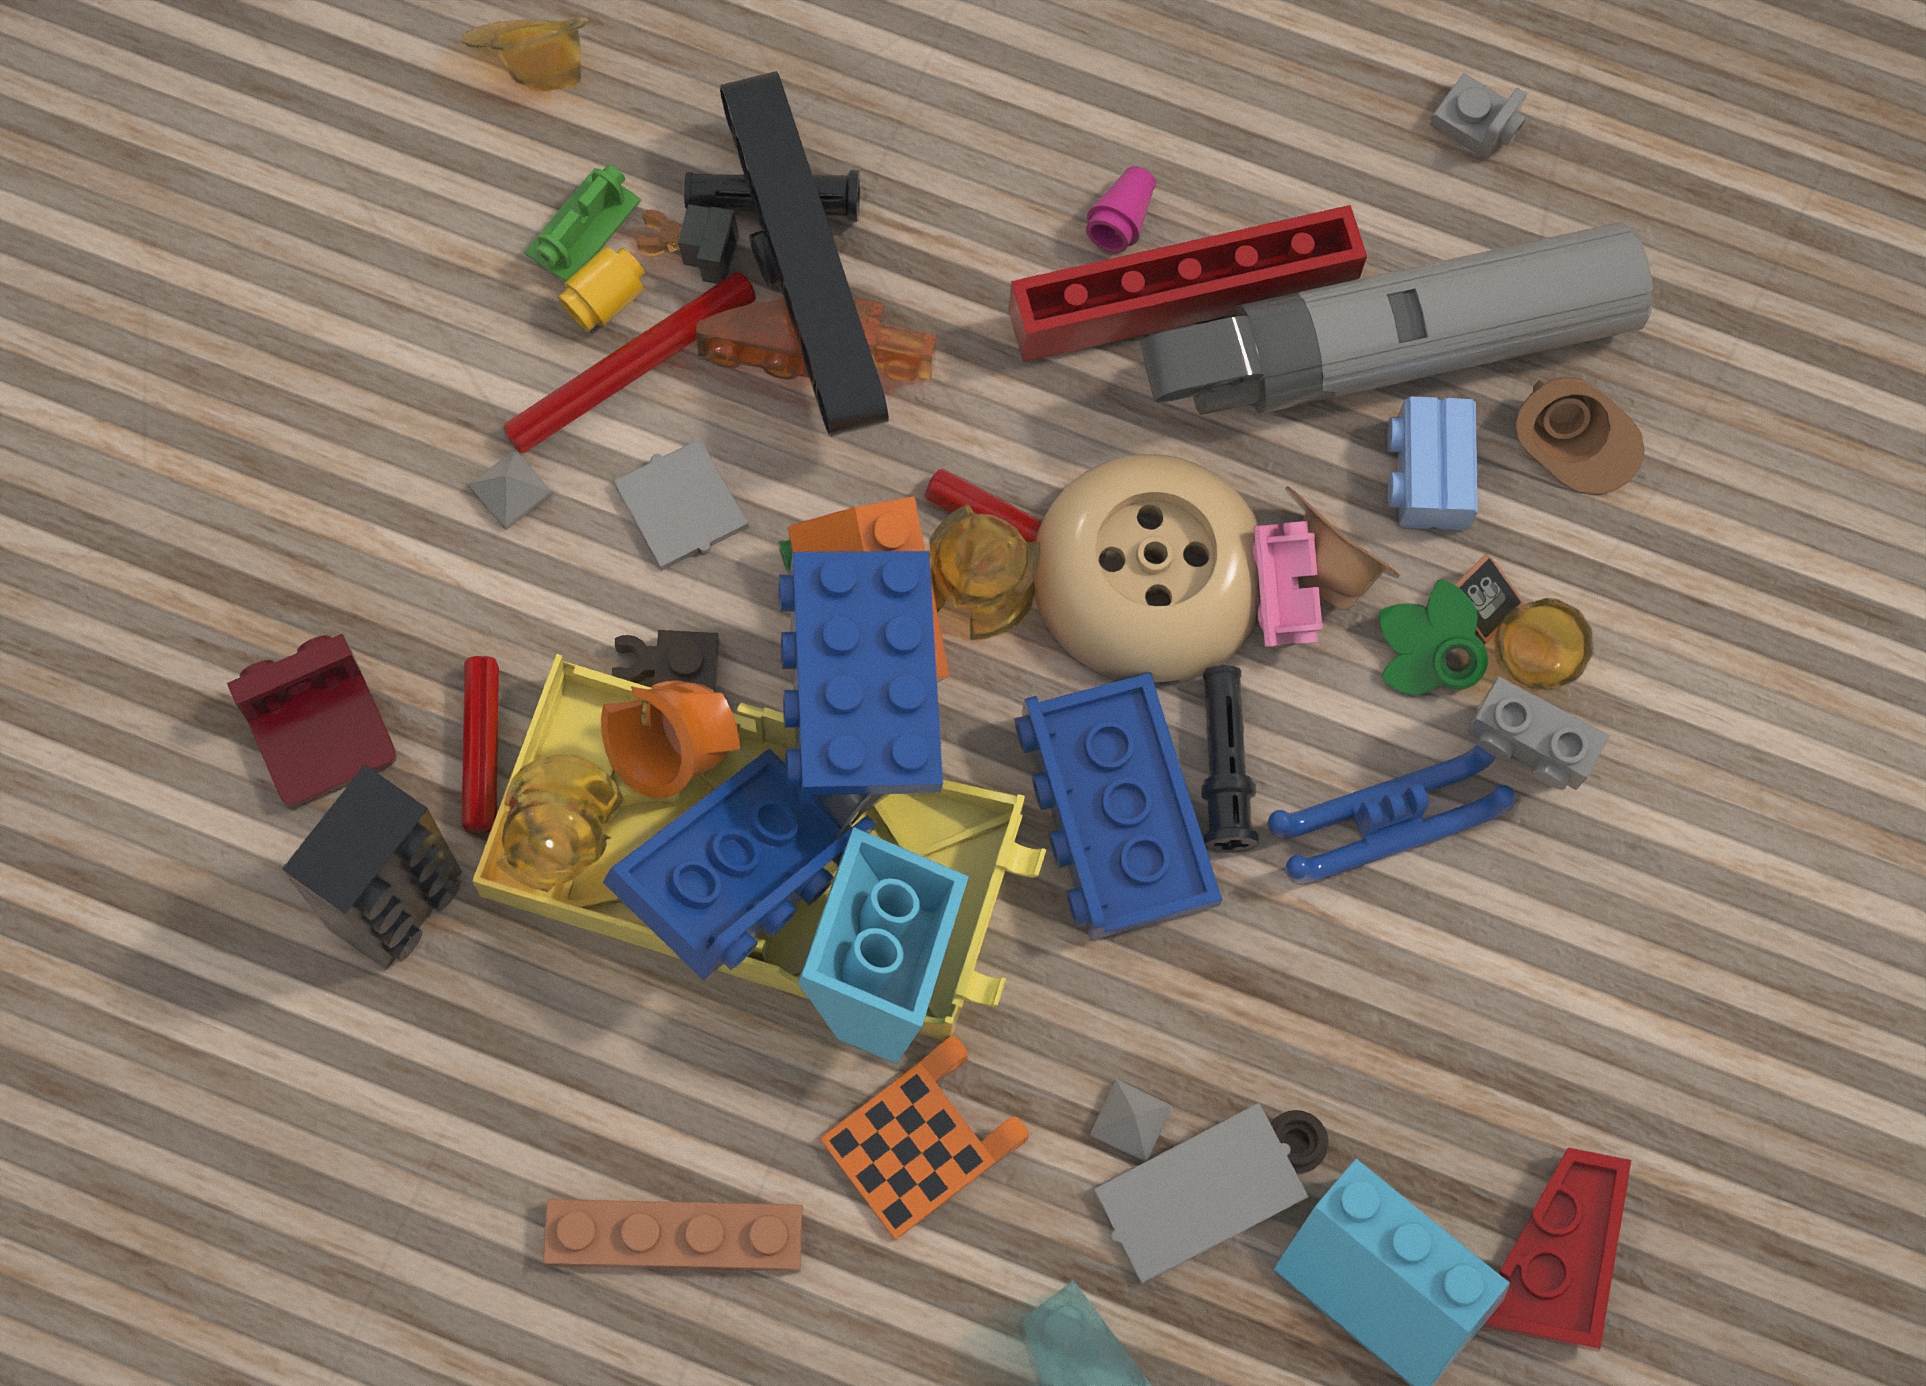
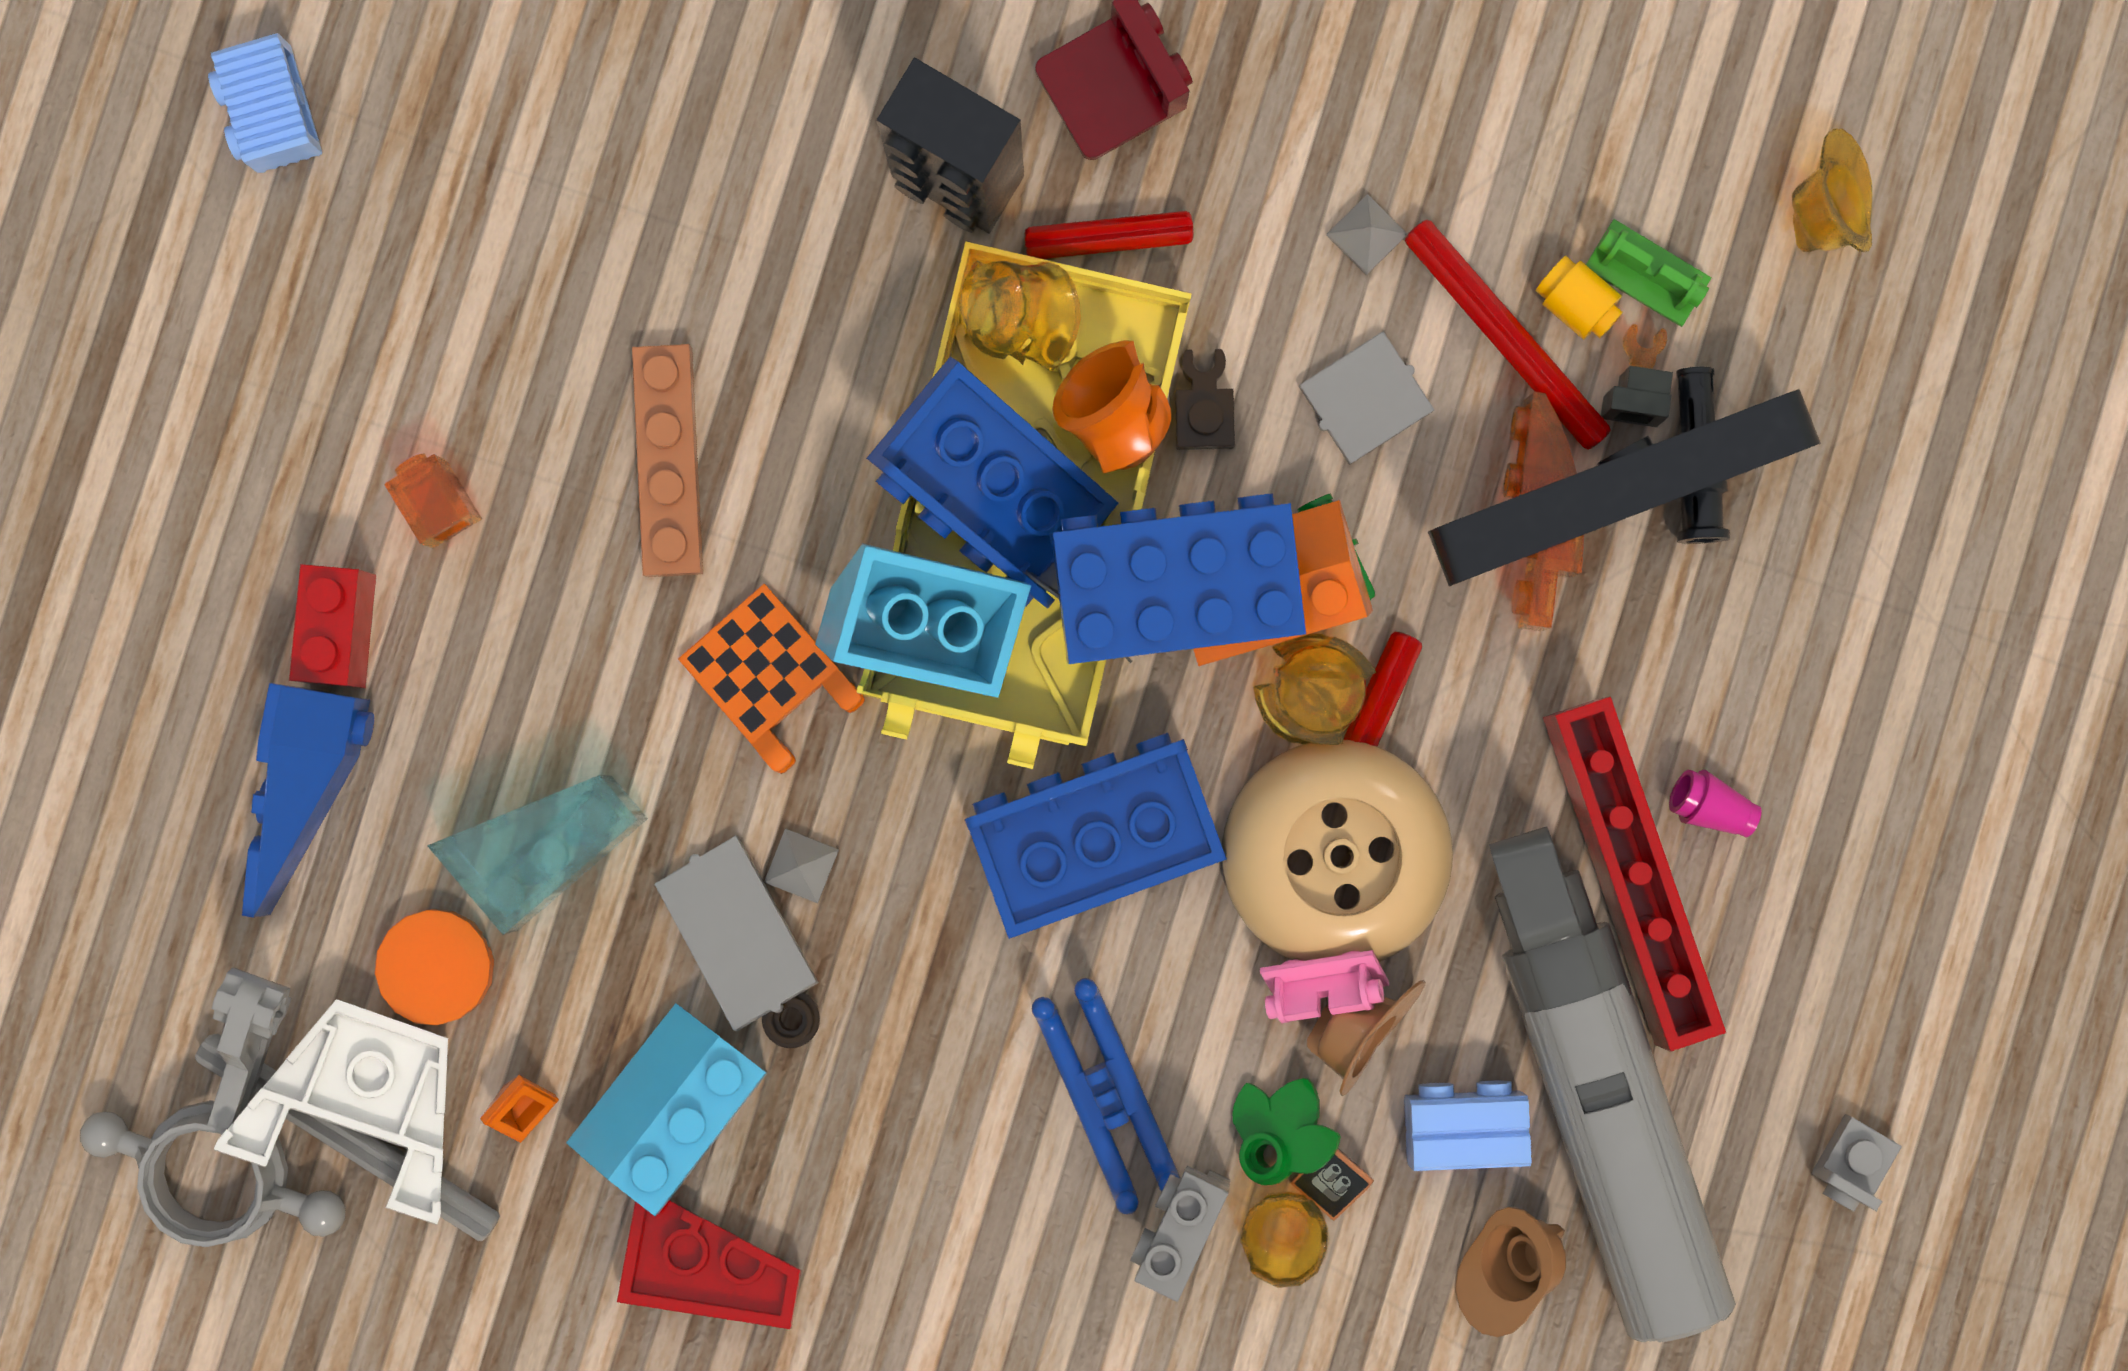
camera: 90 degrees right, 15 degrees up
(1227, 786) = (1119, 939): black pin -> none

